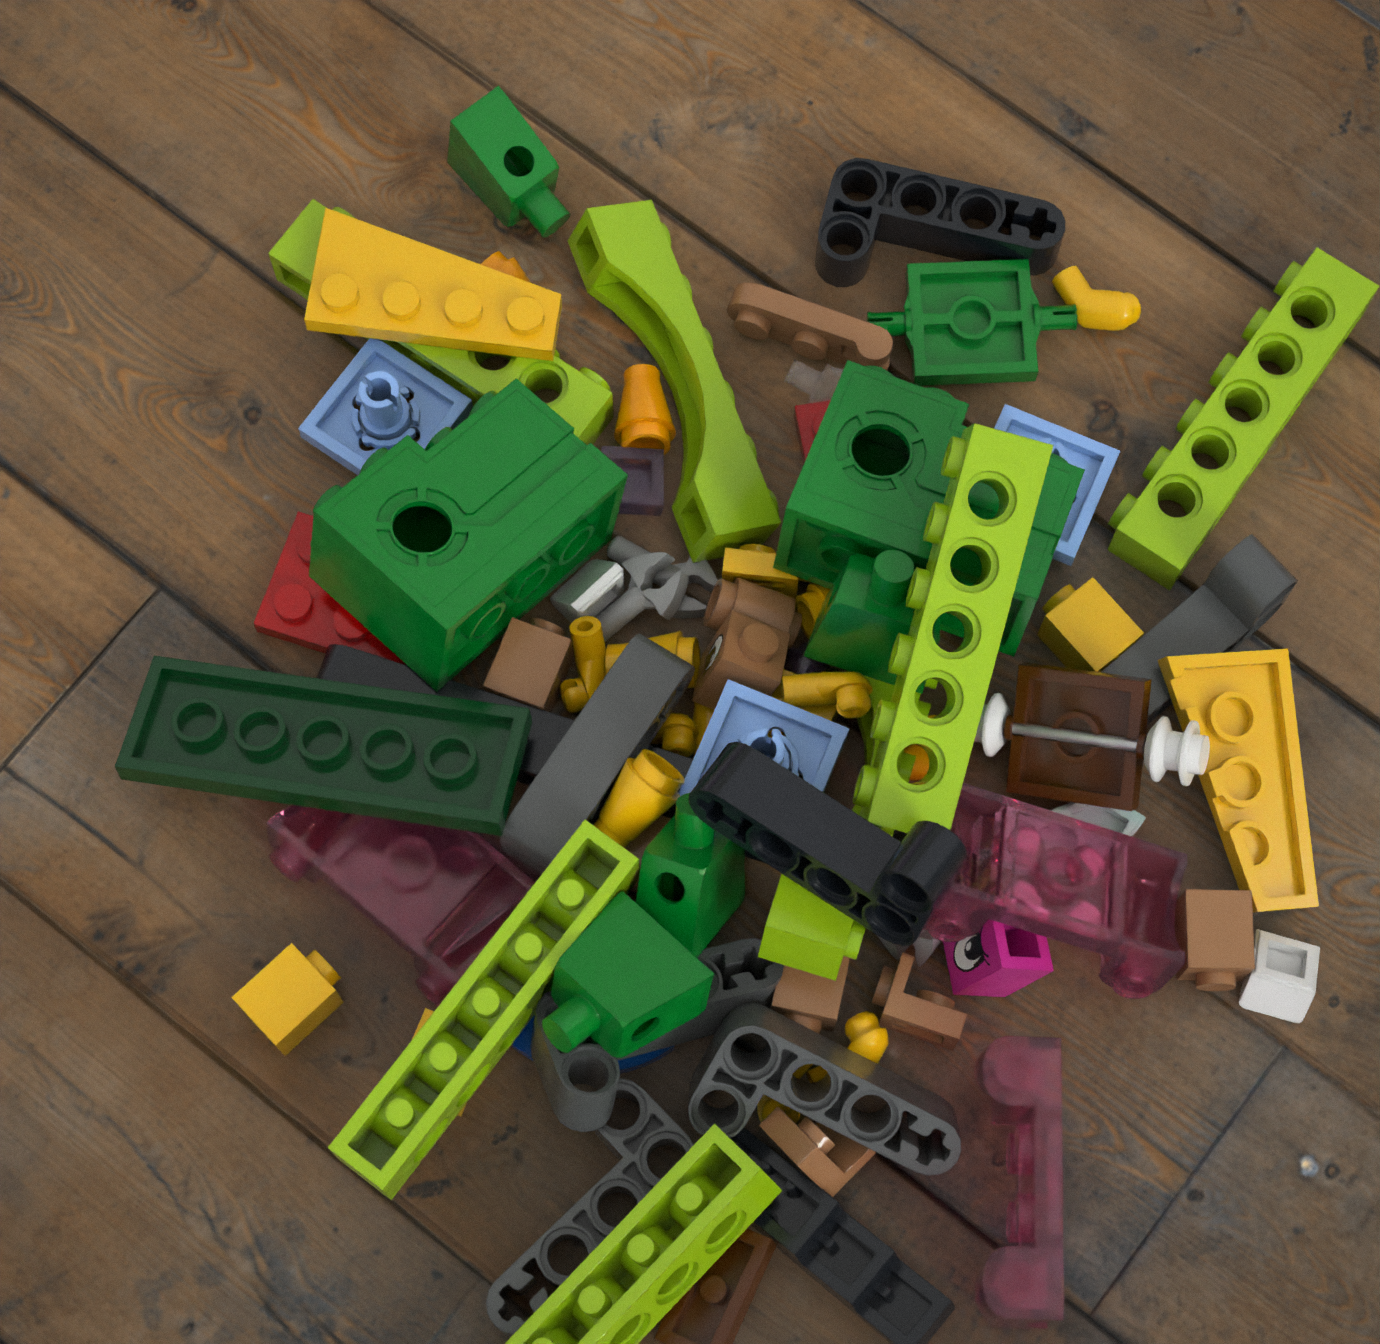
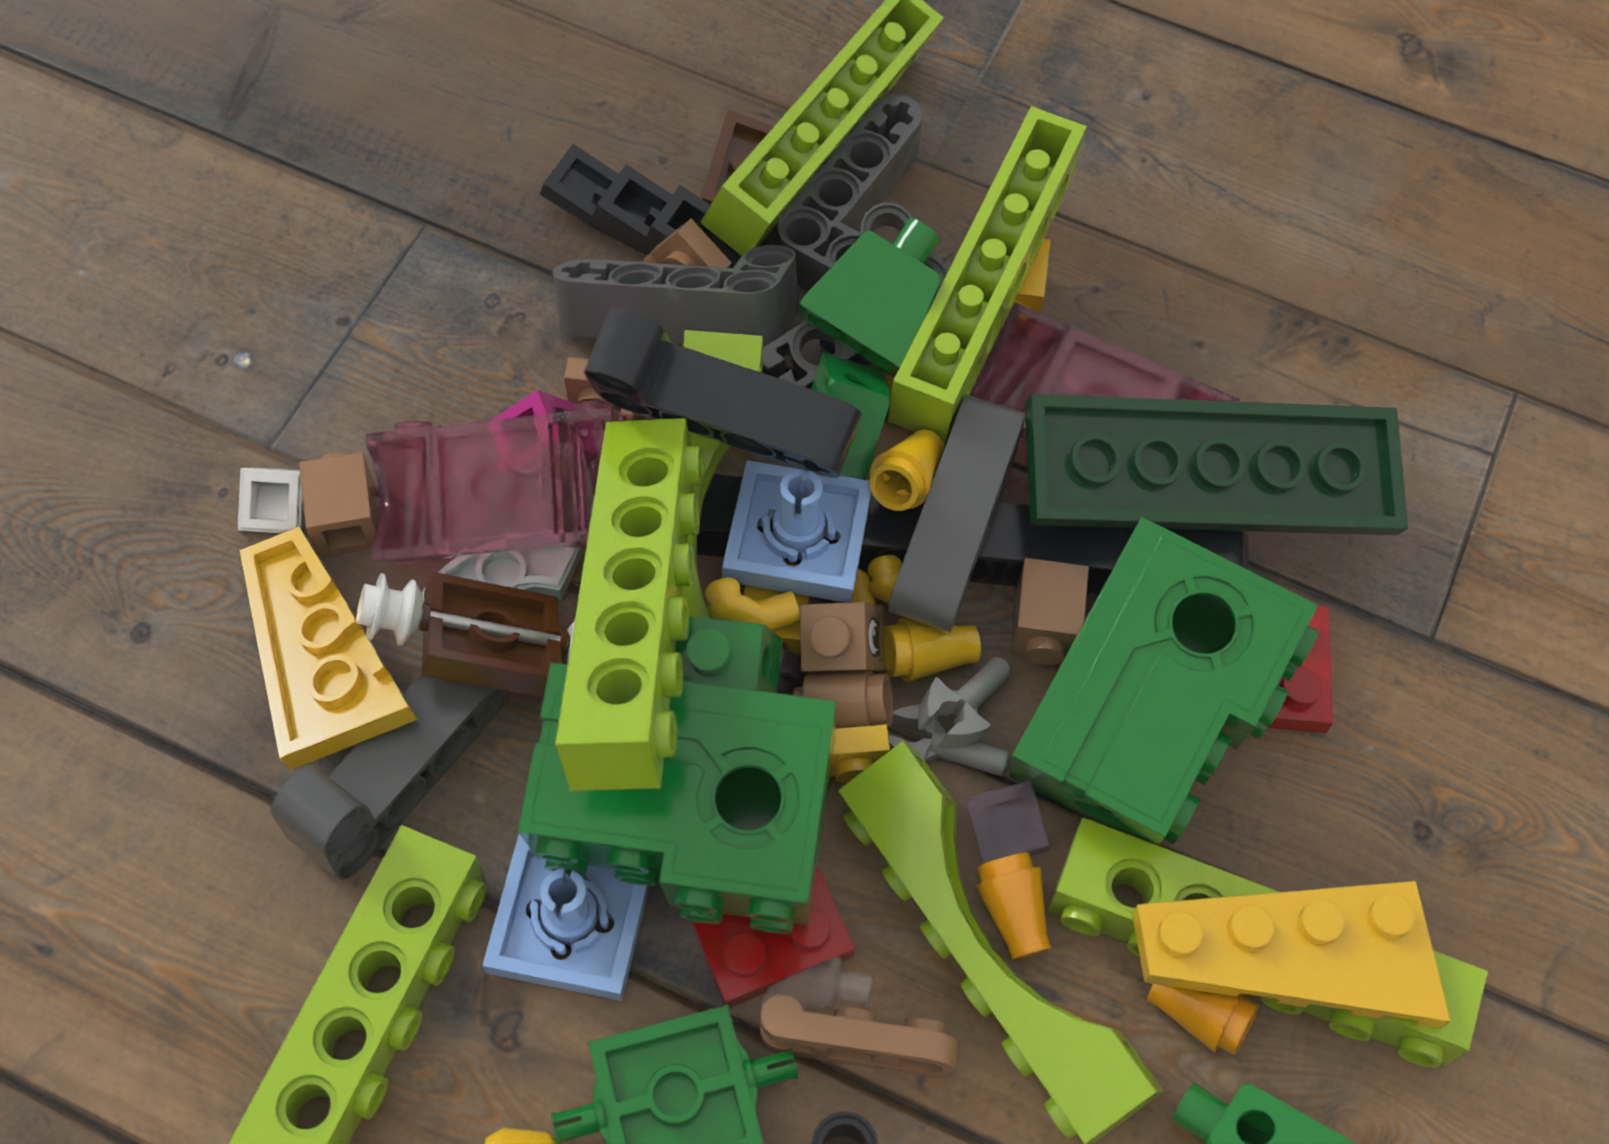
camera: 165 degrees right, 10 degrees down
(290, 997) = (1162, 302): yellow brick -> none
(379, 383) = (1291, 819): light blue plate -> none
(590, 590) = (1014, 702): white slope -> none
(590, 662) = (988, 616): yellow arm -> none
(1025, 1282) = (505, 306): clear pink piece -> none
(1087, 627) = (488, 760): yellow brick -> none

